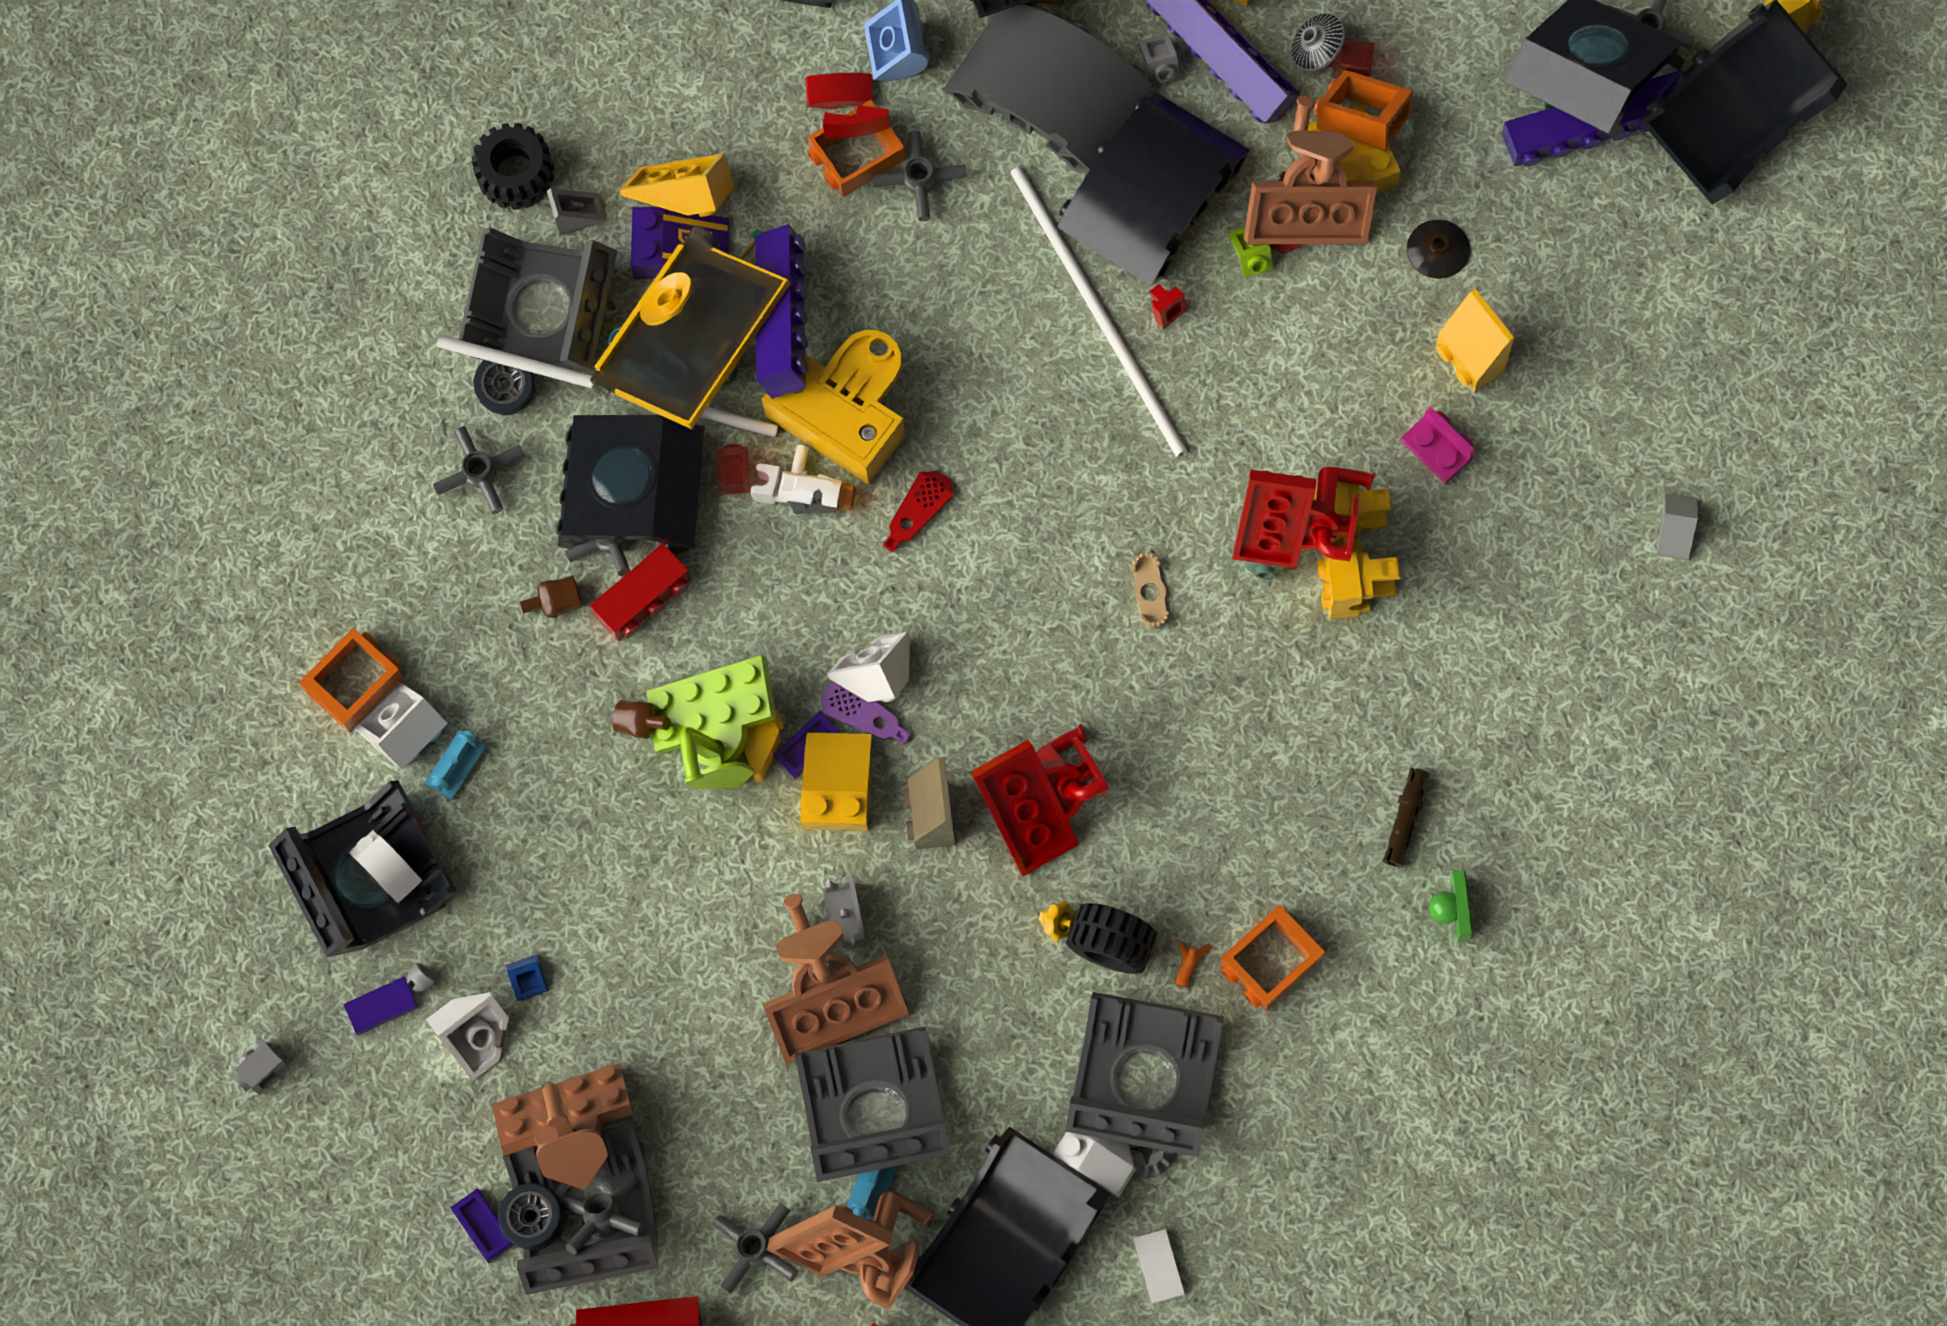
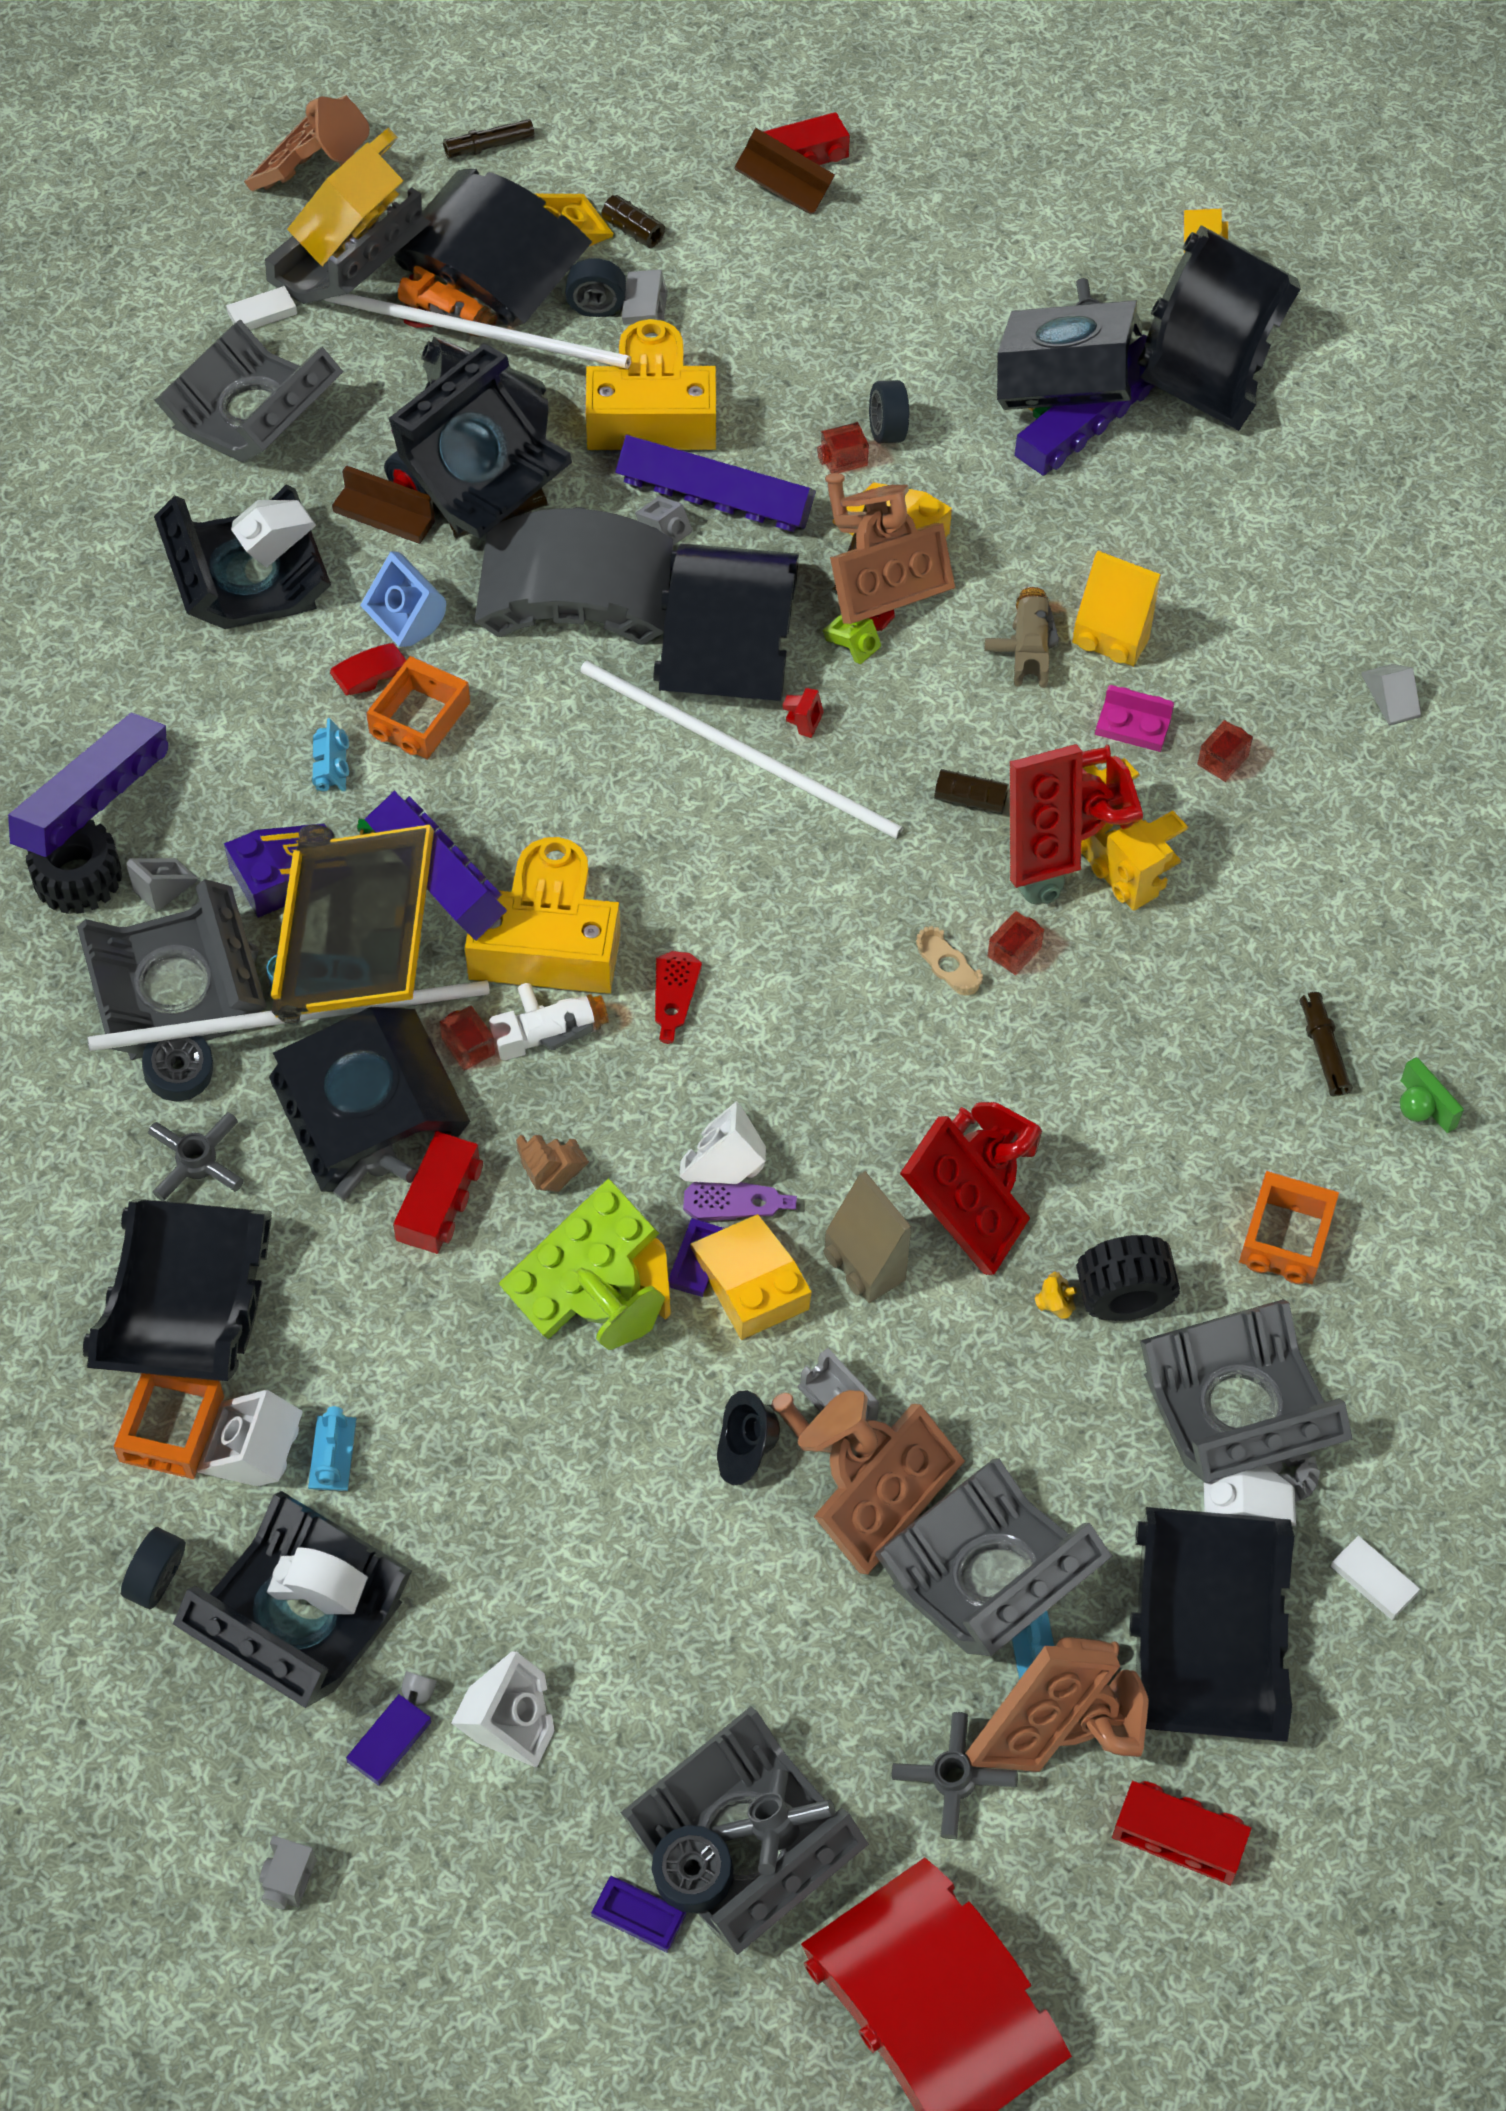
camera: 35 degrees left, 15 degrees down
(279, 792) = (152, 1568): none -> black wheel
(408, 582) = (182, 1291): none -> black panel
(527, 977) = (536, 1628): blue slope -> none
(554, 102) = (87, 784): none -> brick
(554, 597) = (348, 1240): reddish brown piece -> none
(565, 1123) = (674, 1744): nougat plate -> none
(637, 719) = (508, 1311): reddish brown piece -> none
(666, 299) = (314, 896): yellow dish -> none
(683, 185) = (266, 804): yellow slope -> none
(739, 610) = (550, 1164): none -> medium nougat hair
(757, 911) = (746, 1435): none -> black piece
(770, 150) = (331, 746): none -> medium azure hinge
(866, 122) = (404, 681): red slope -> none
(923, 186) = (495, 705): dark grey bar -> none
(1189, 961) = (1209, 1275): orange bar -> none
(1211, 602) = (1015, 942): none -> clear red brick
(1260, 445) = (971, 791): none -> dark brown axle
(1318, 42) = (803, 445): dish -> none
(1357, 125) = (886, 466): orange window -> none
(1401, 326) = (1032, 638): none -> dark tan piece
(1409, 44) = (889, 411): none -> black wheel
(1433, 261) = (1015, 575): dish -> none
(1495, 512) = (1225, 750): none -> clear red brick

